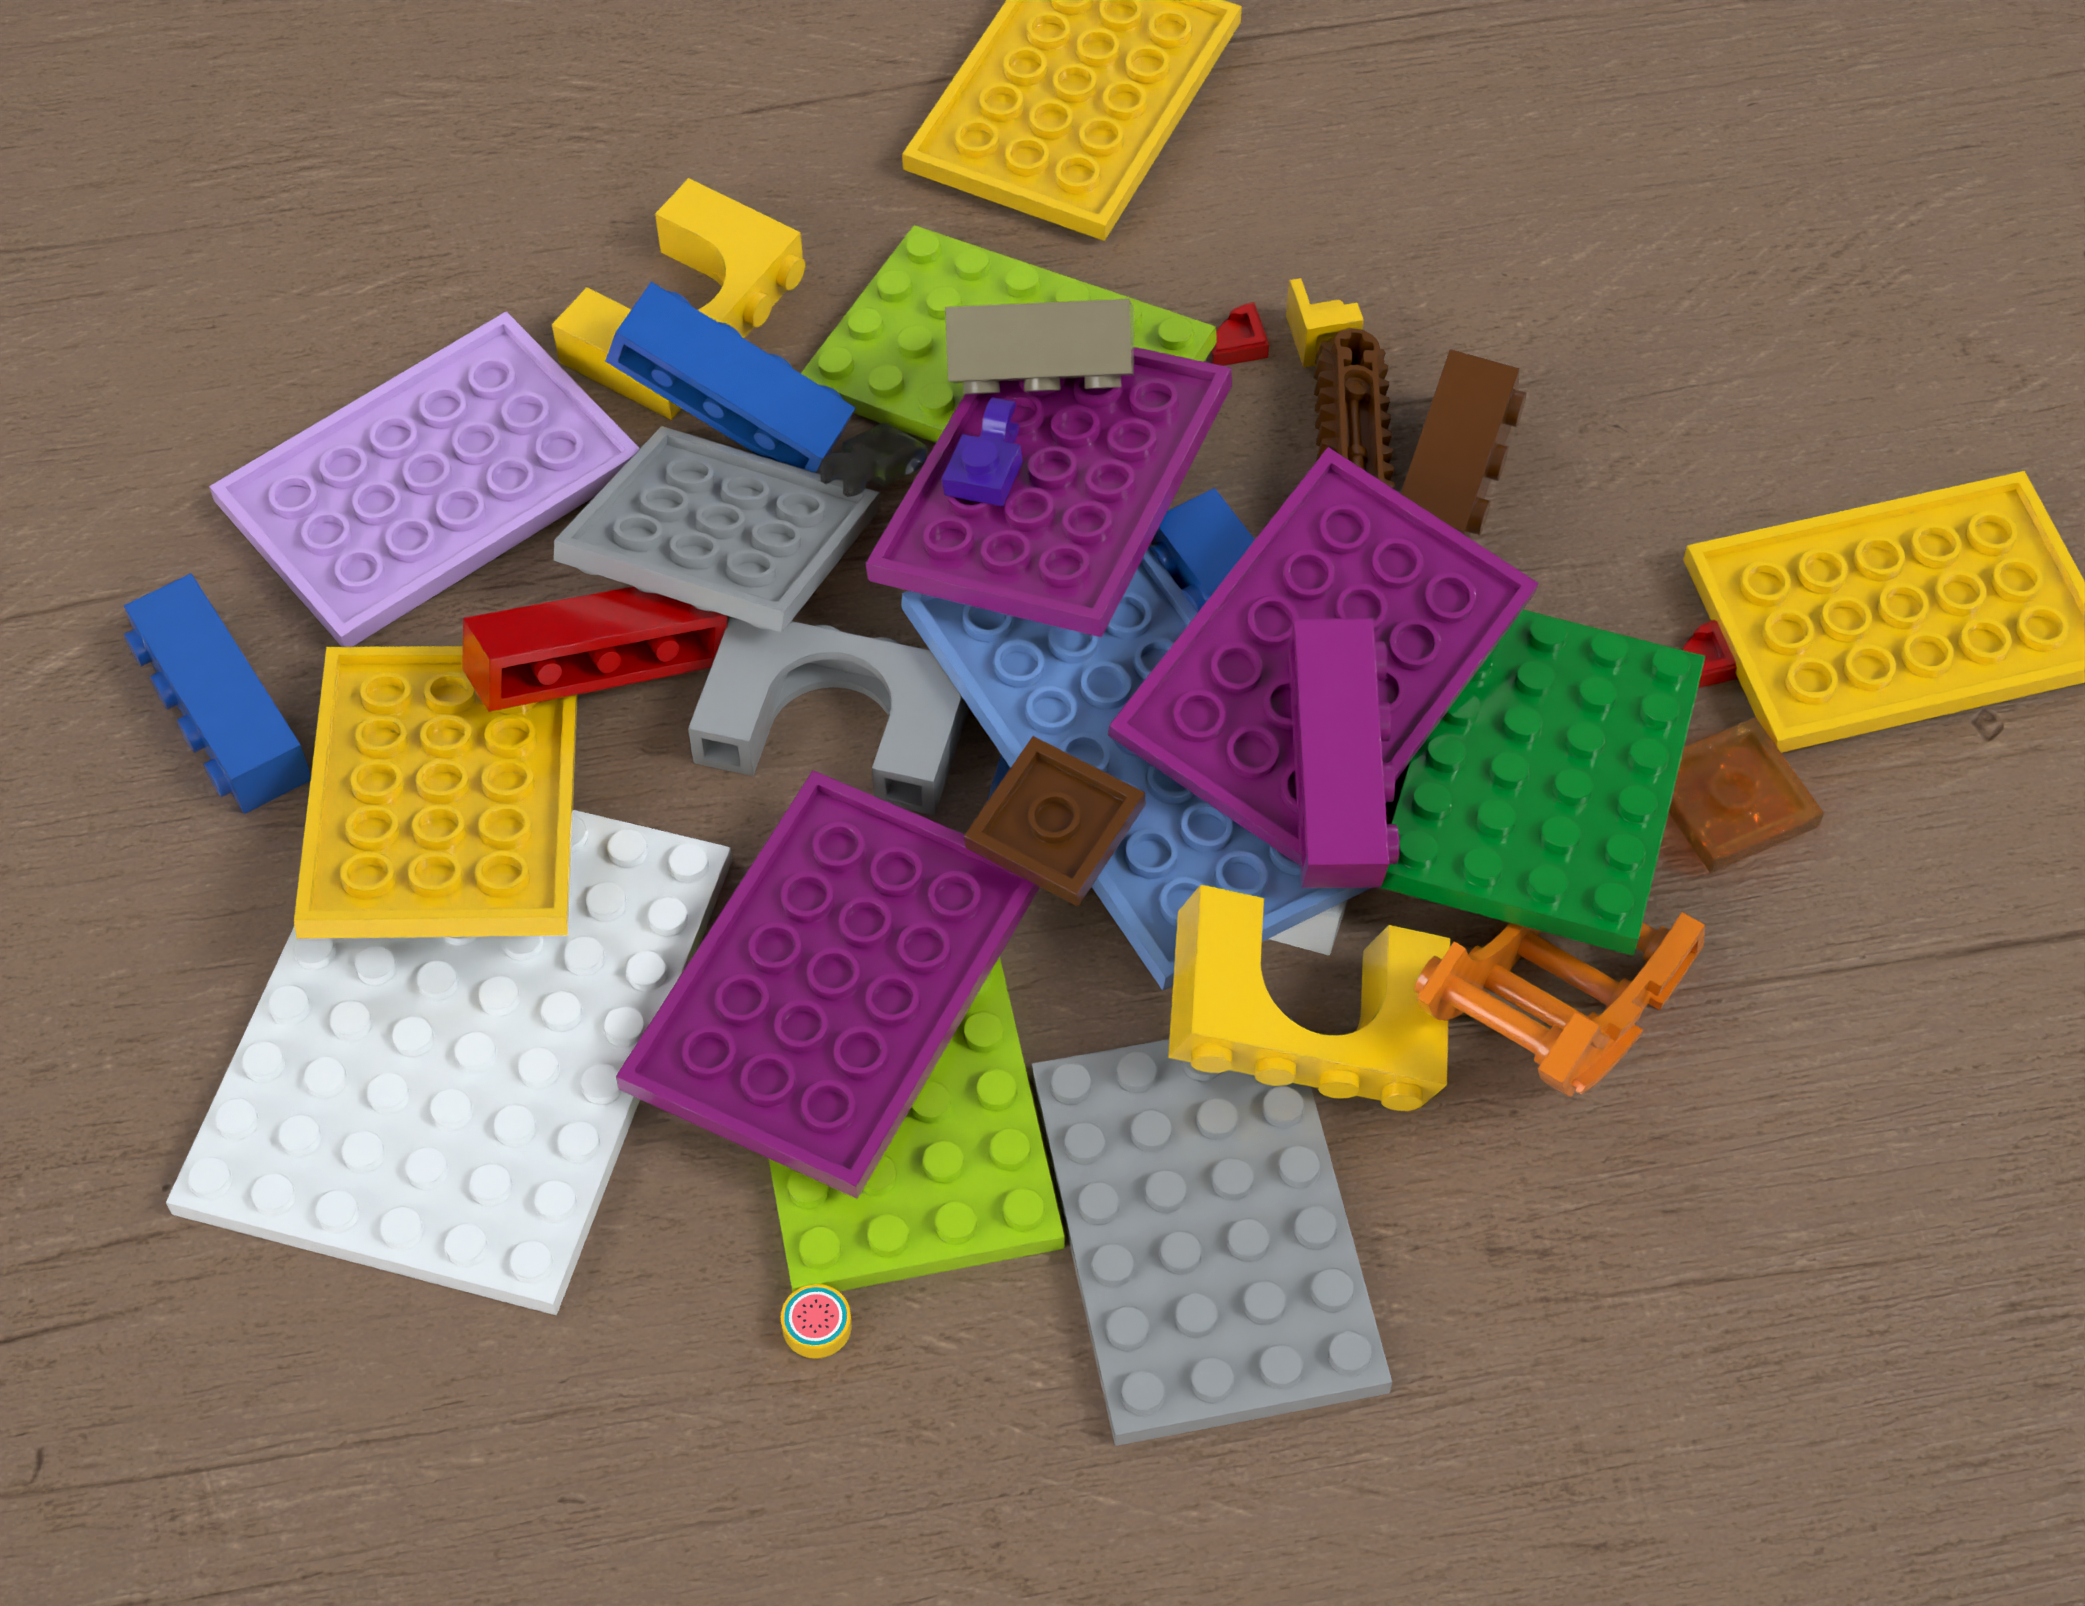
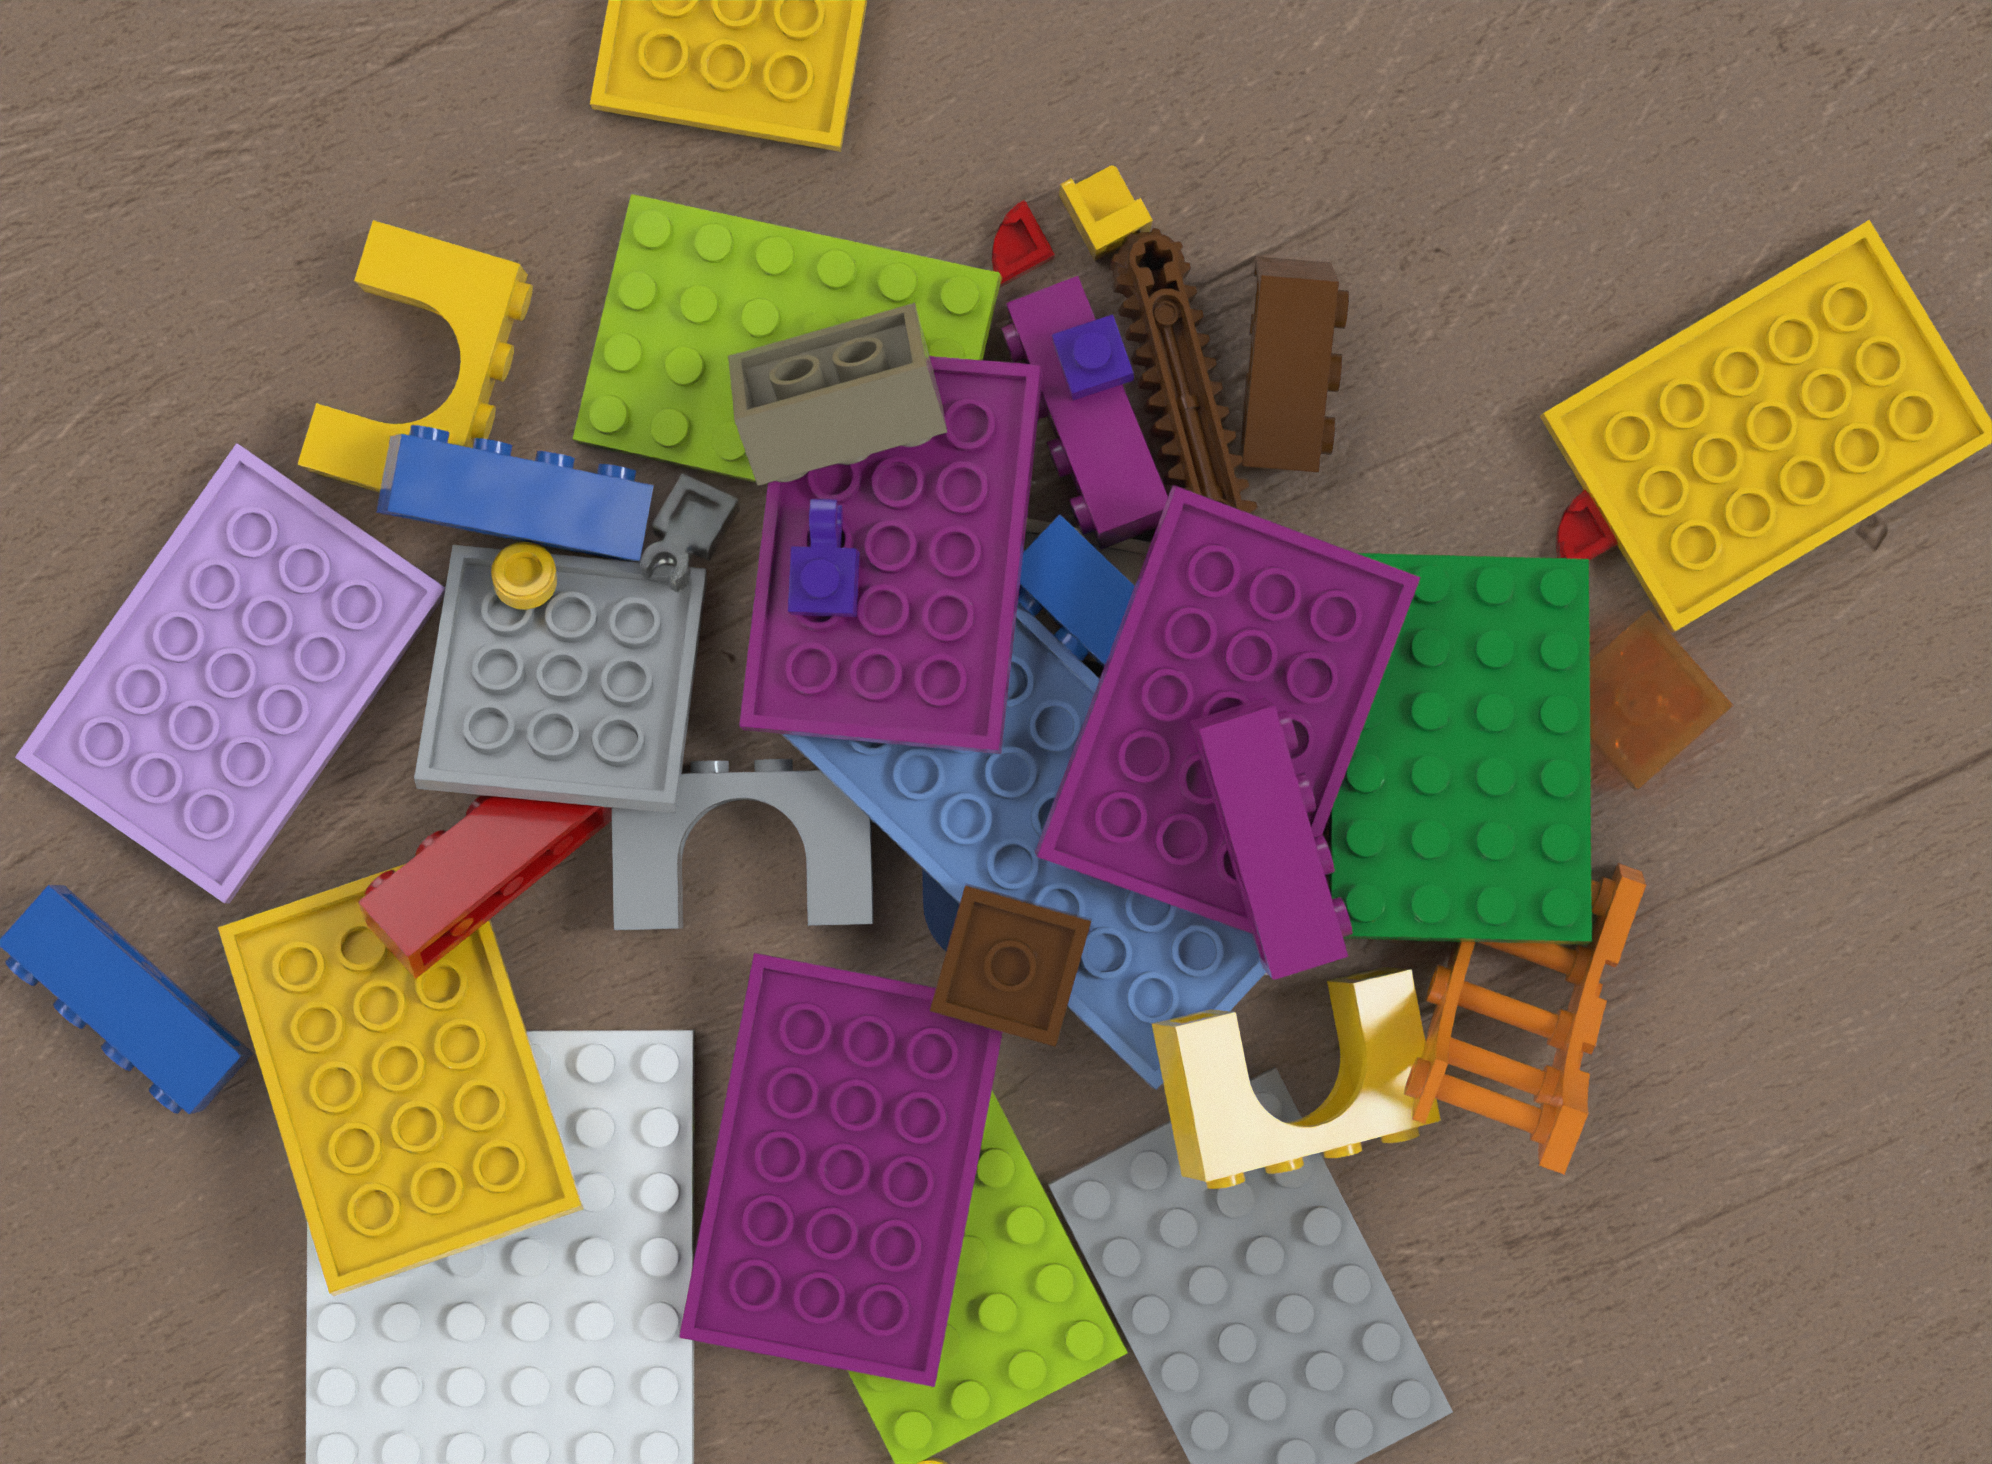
camera: 20 degrees left, 30 degrees up
(715, 450) = (524, 575): none -> yellow tile
(1259, 433) = (1095, 434): none -> magenta brick
(1280, 389) = (1092, 357): none -> dark purple plate

